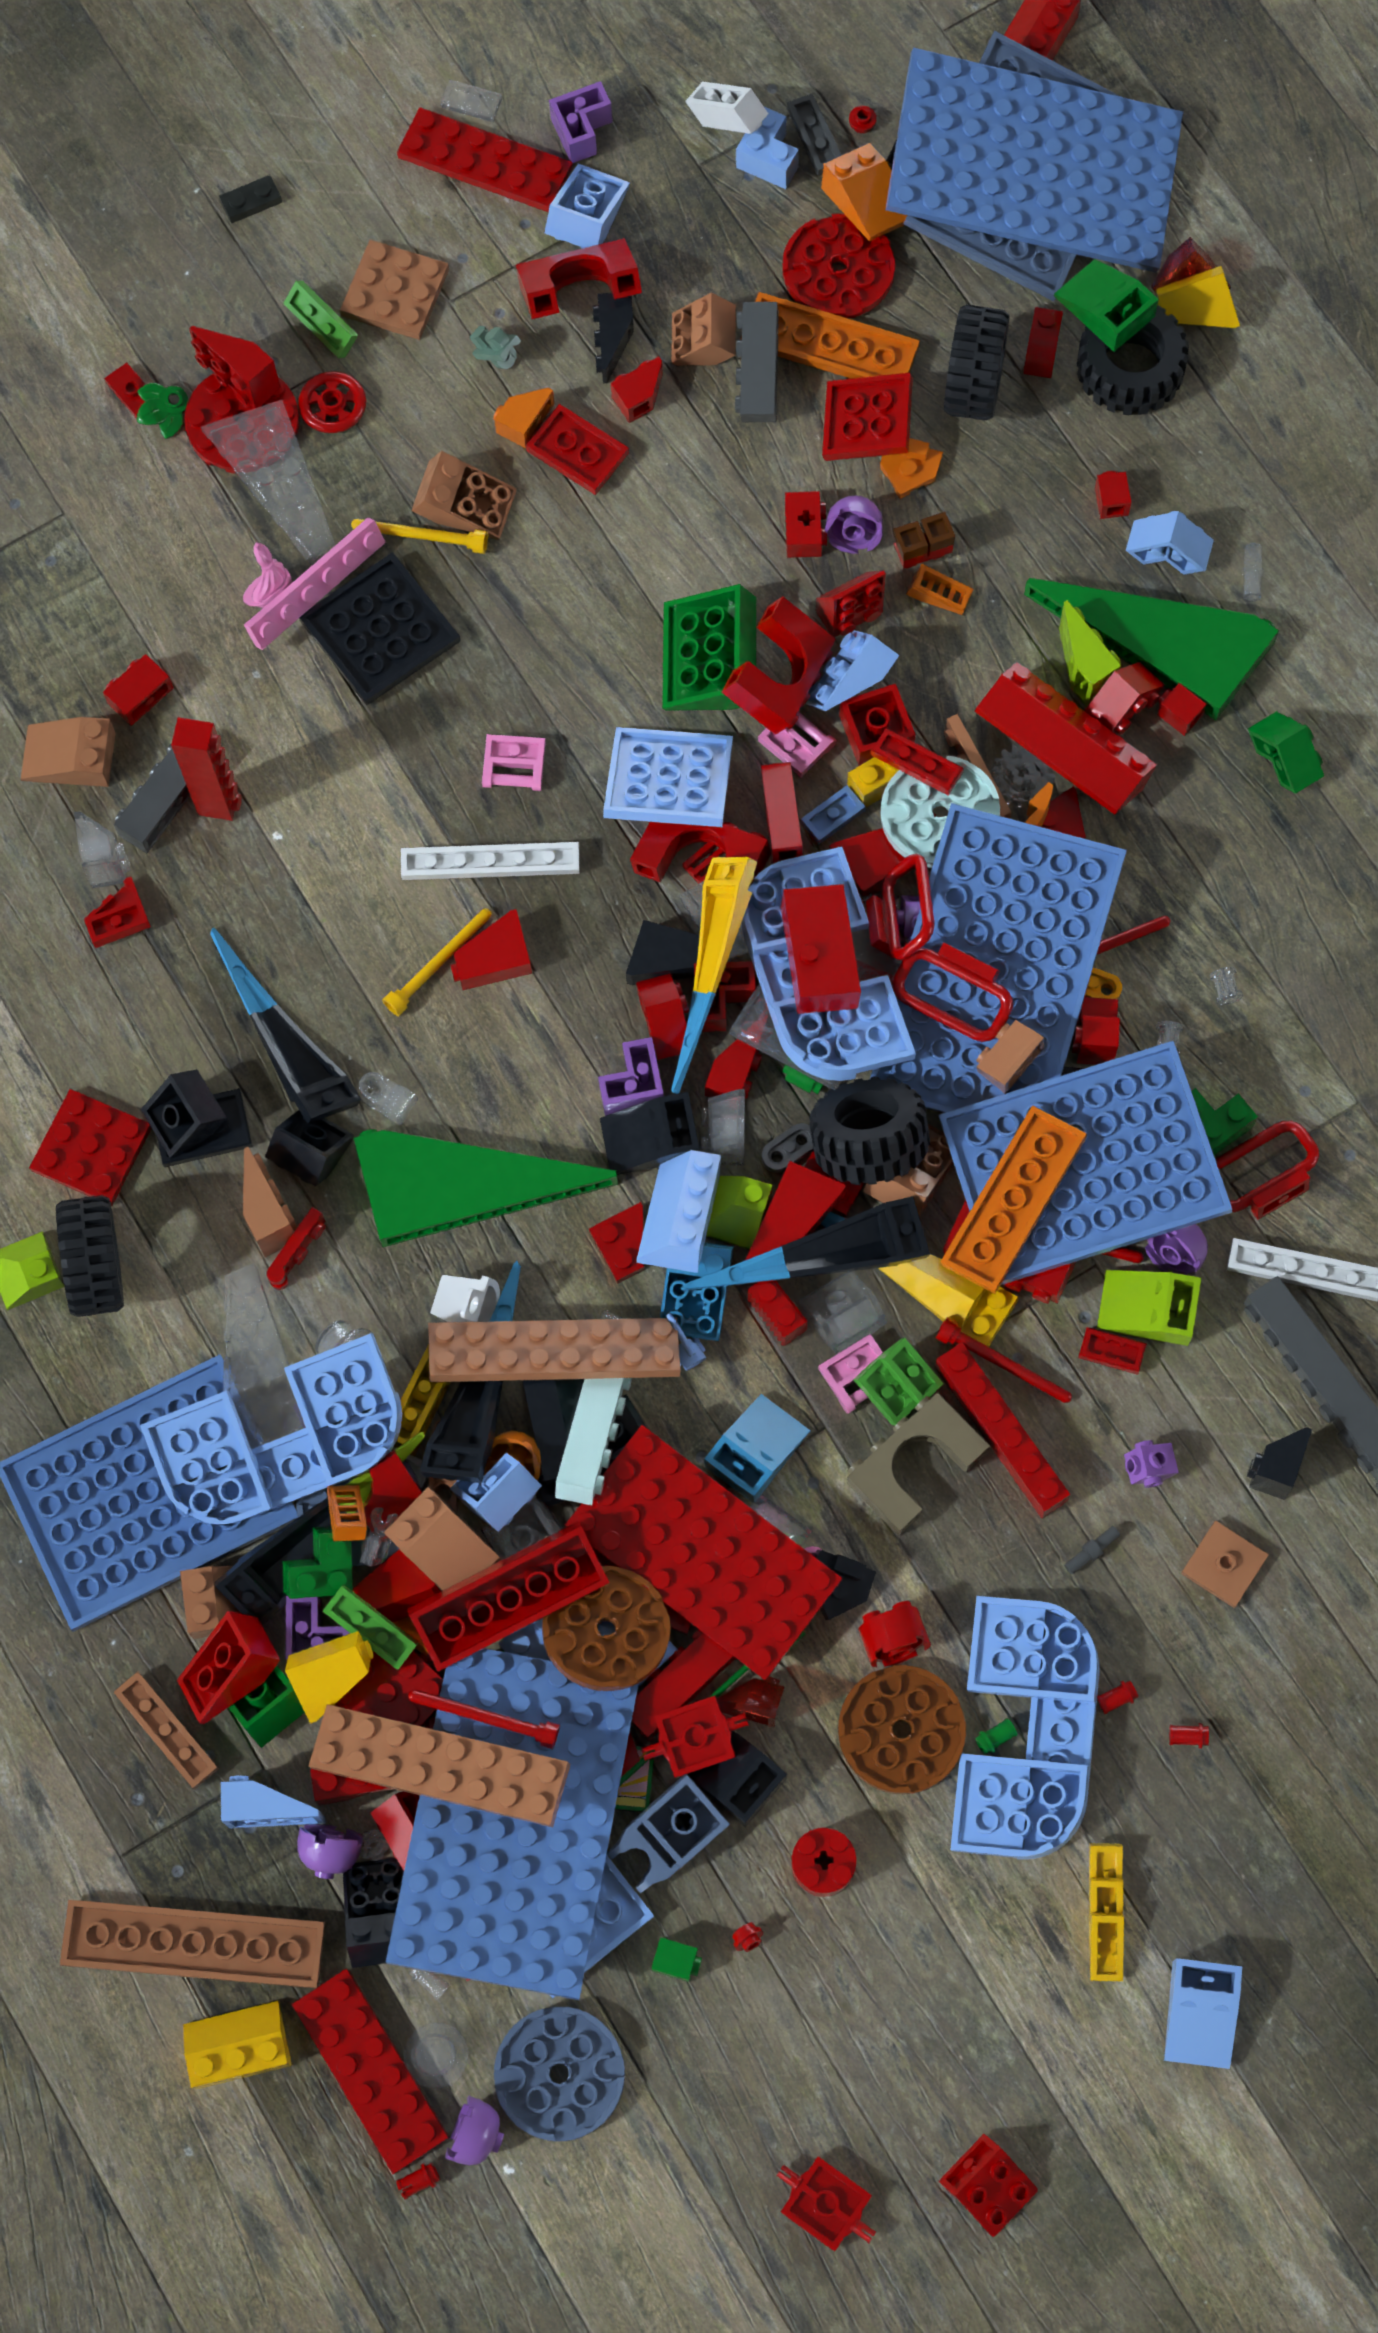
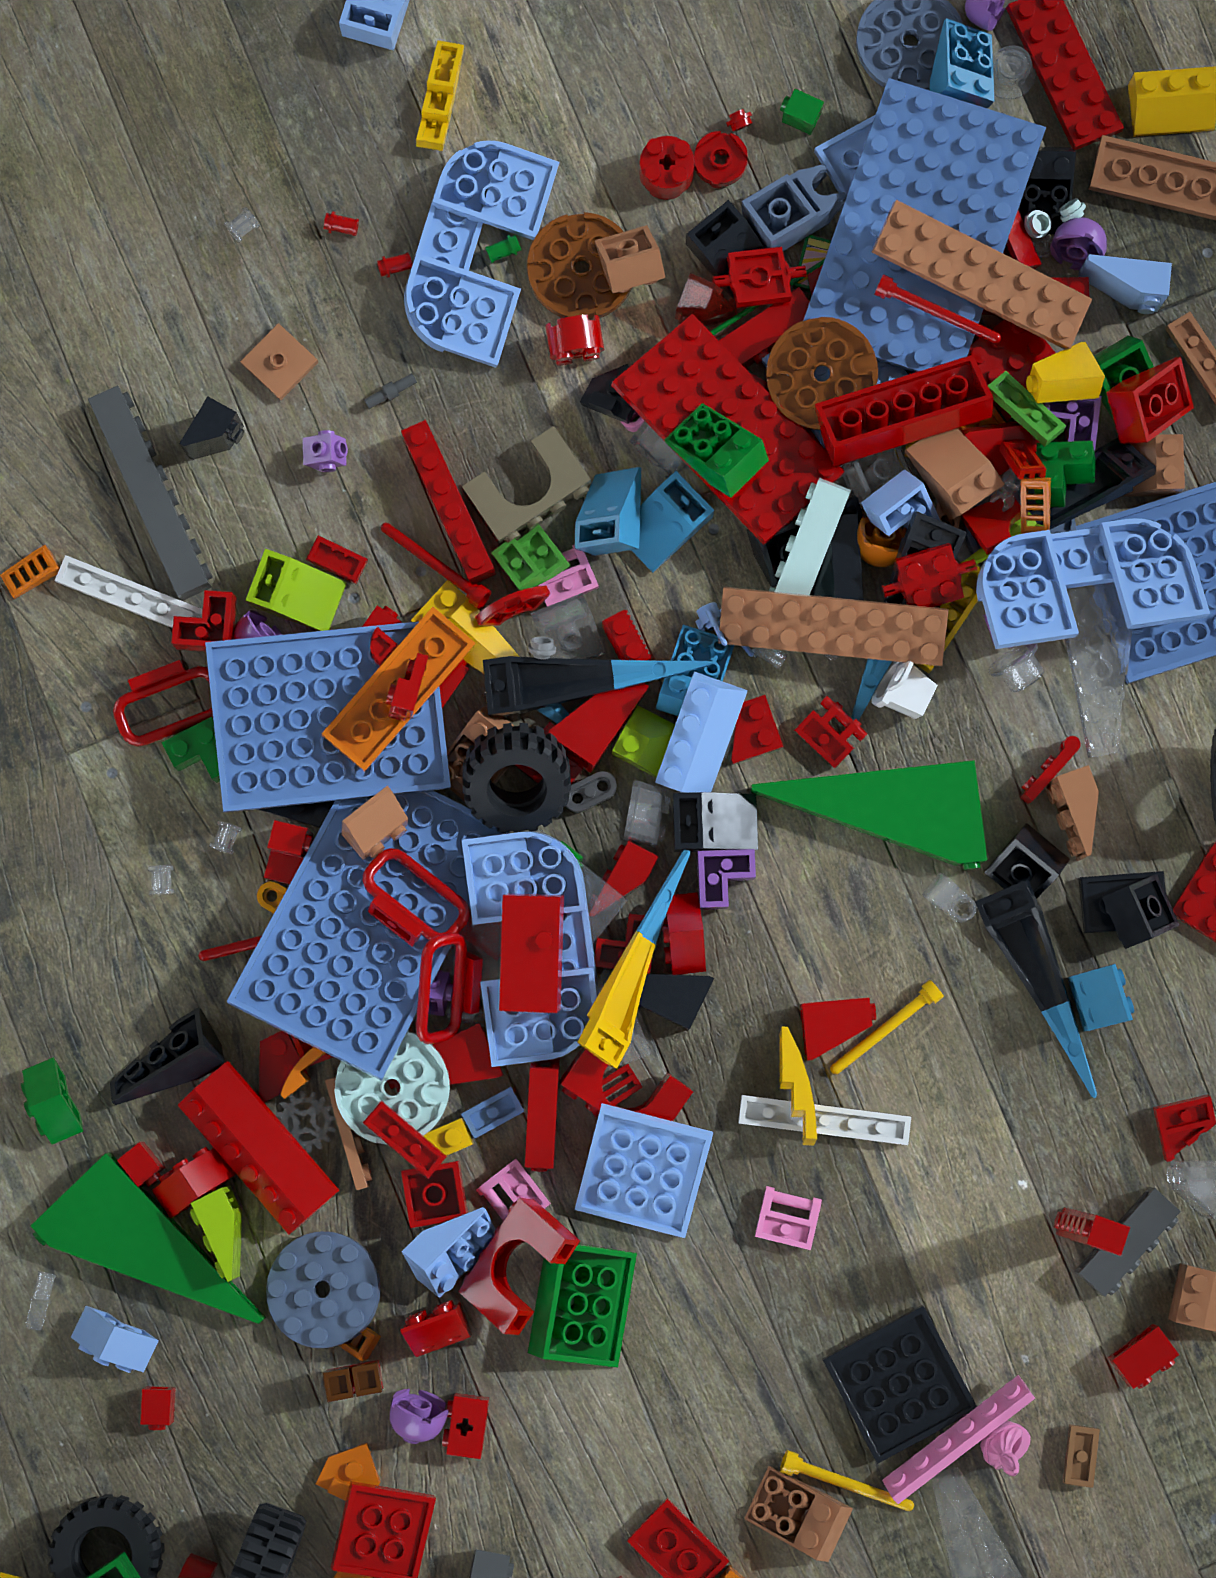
camera: 175 degrees left, 10 degrees up
(191, 592) = (1081, 1455): none -> medium nougat plate
(217, 1016) = (1101, 997): none -> dark azure slope
(342, 1879) = (1072, 210): none -> light aqua plate
(358, 1544) = (1018, 462): none -> red tile
(381, 1860) = (1037, 224): none -> light aqua plate
(454, 1414) = (930, 577): none -> red plate
(491, 2039) = (964, 65): none -> dark azure slope
(528, 891) = (794, 1077): none -> yellow slope
(543, 1242) = (824, 738): none -> red plate
(712, 1512) = (718, 449): none -> green slope
(762, 1868) = (724, 144): none -> red plate
(819, 1443) = (610, 513): none -> dark azure slope
(847, 1738) = (630, 259): none -> nougat slope
(867, 1276) = (542, 647): none -> light grey plate
(908, 1324) = (512, 604): none -> red tile
(955, 646) = (352, 1294): none -> sand blue plate
(1005, 1180) = (404, 694): none -> red plate
(1041, 1242) = (381, 646): none -> red tile
(1167, 816) = (181, 1057): none -> black wedge
(1231, 1238) = (215, 625): none -> red brick
(1303, 1714) = (242, 224): none -> clear bush

